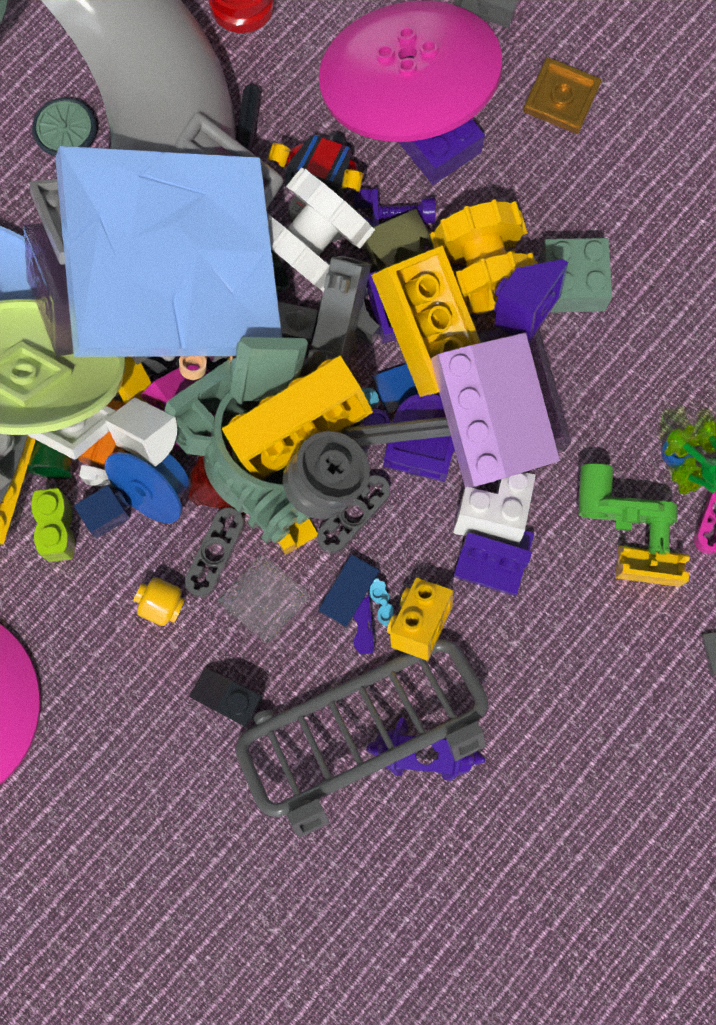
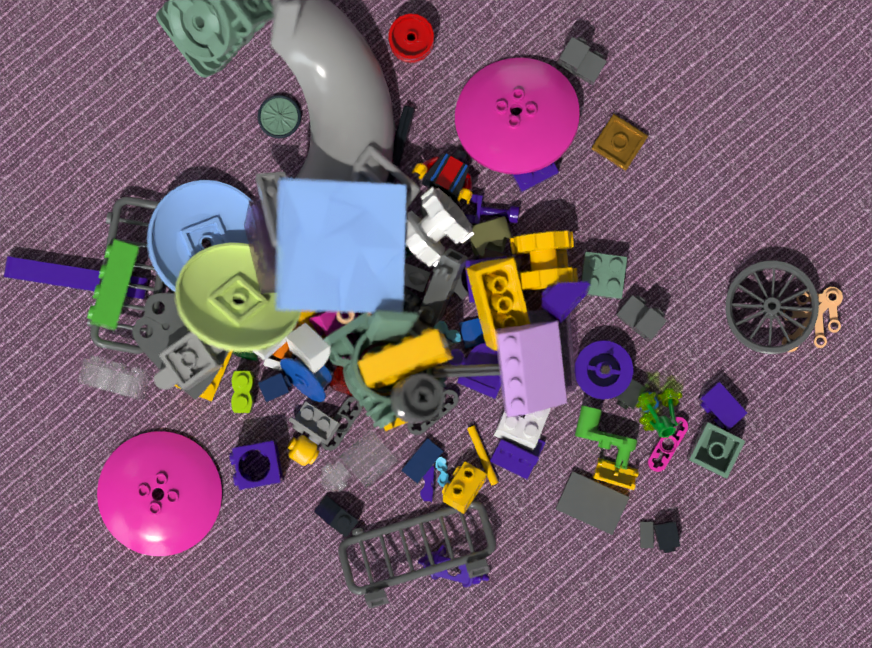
camera: 15 degrees right, 10 degrees up
(59, 615) = (272, 476): none -> dark purple brick
(173, 556) = (315, 423): none -> light grey bracket
(215, 634) = (335, 476): none -> clear brick
(441, 568) = (482, 455): none -> yellow bar
(605, 406) = (603, 369): none -> dark purple piece
(623, 616) = (592, 503): none -> dark grey tile
(646, 328) = (641, 318): none -> dark grey brick
(649, 439) = (630, 396): none -> pearl dark grey brick

